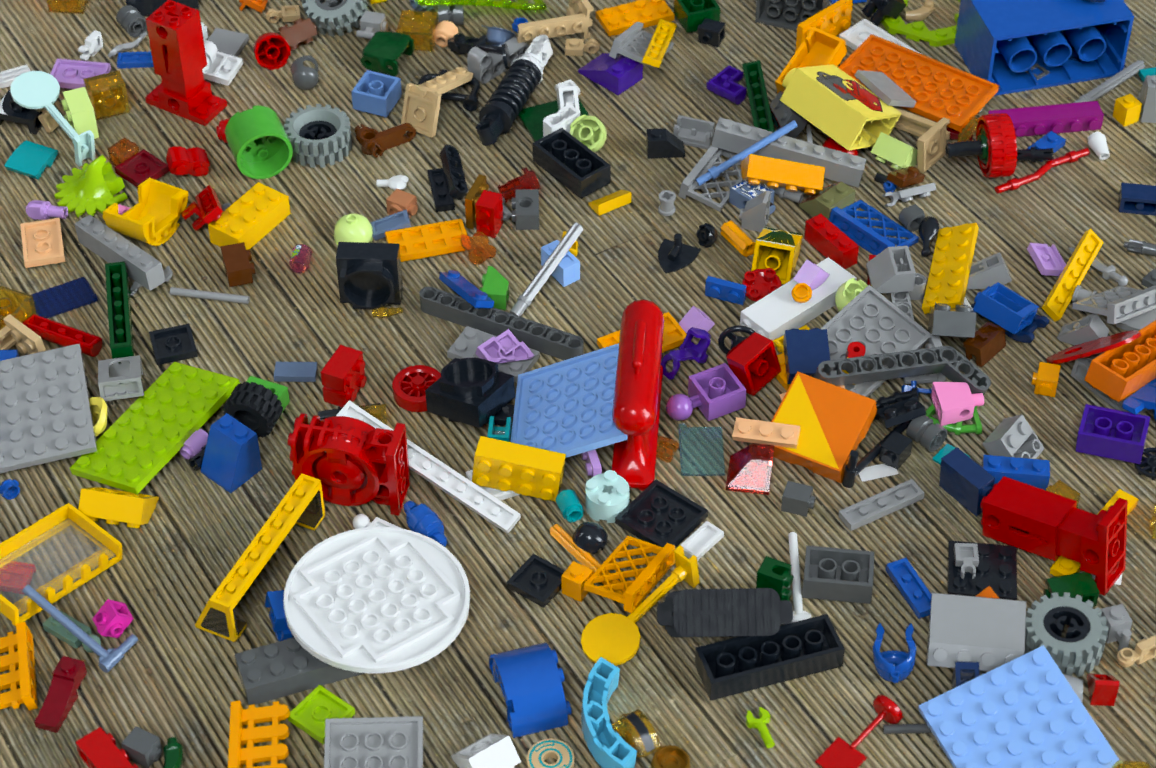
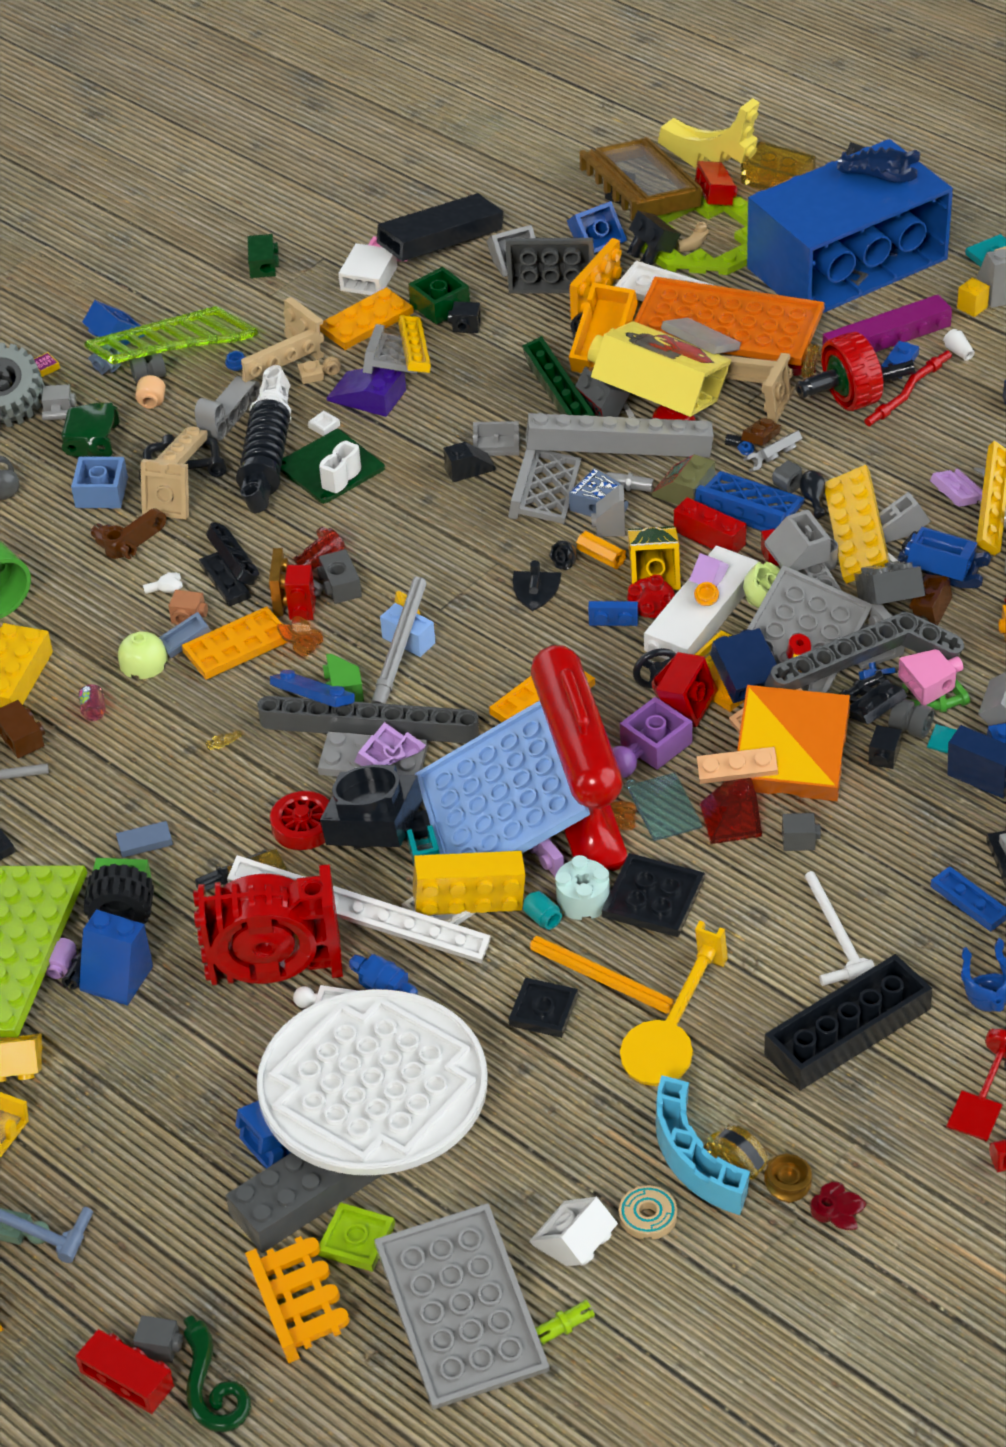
camera: 15 degrees left, 0 degrees up
(61, 694) = (28, 1304): dark red slope -> none
(112, 619) = (53, 1195): dark pink brick -> none
(300, 506) = (224, 1000): yellow window -> none
(319, 135) = (54, 532): light grey wheel -> none
(343, 376) = (210, 829): red piece -> none
(369, 274) = (190, 699): black container -> none
(420, 27) = (117, 388): clear yellow brick -> none
(463, 44) = (186, 398): black piece -> none
(498, 36) = (216, 380): sand blue piece -> none
(531, 688) = (593, 1132): blue cylinder -> none
(567, 96) = (332, 433): white slope -> none
(571, 163) = (370, 508): black brick -> none
(574, 579) = (590, 996): light orange brick -> none
(589, 131) = (375, 470): yellowish green cylinder -> none
(590, 537) = (583, 940): black hair -> none
(611, 202) = (433, 543): yellow slope -> none
(645, 577) = (668, 968): light orange fence -> none
(666, 205) = (501, 532): light grey bush -> none
(688, 351) = (613, 691): dark purple piece -> none
(697, 319) = (596, 659): lavender brick -> none
(702, 540) = (710, 908): white tile -> none
(714, 172) = (544, 478): medium blue bar -> none
(724, 612) = (781, 985): black piece -> none
(726, 85) = (509, 375): dark purple brick -> none
(760, 724) = (867, 1101): lime bar -> none
(775, 575) = (818, 934): dark green brick -> none
(782, 173) = (625, 462): light orange slope -> none
(838, 574) = (884, 905): dark grey brick -> none
(853, 468) = (853, 767): black bar -> none
(877, 471) = (871, 778): white sticker -> none
(881, 504) = (894, 813): light grey plate -> none
(892, 150) = (738, 406): yellowish green slope -> none
(1112, 82) = (942, 270): light grey axle -> none

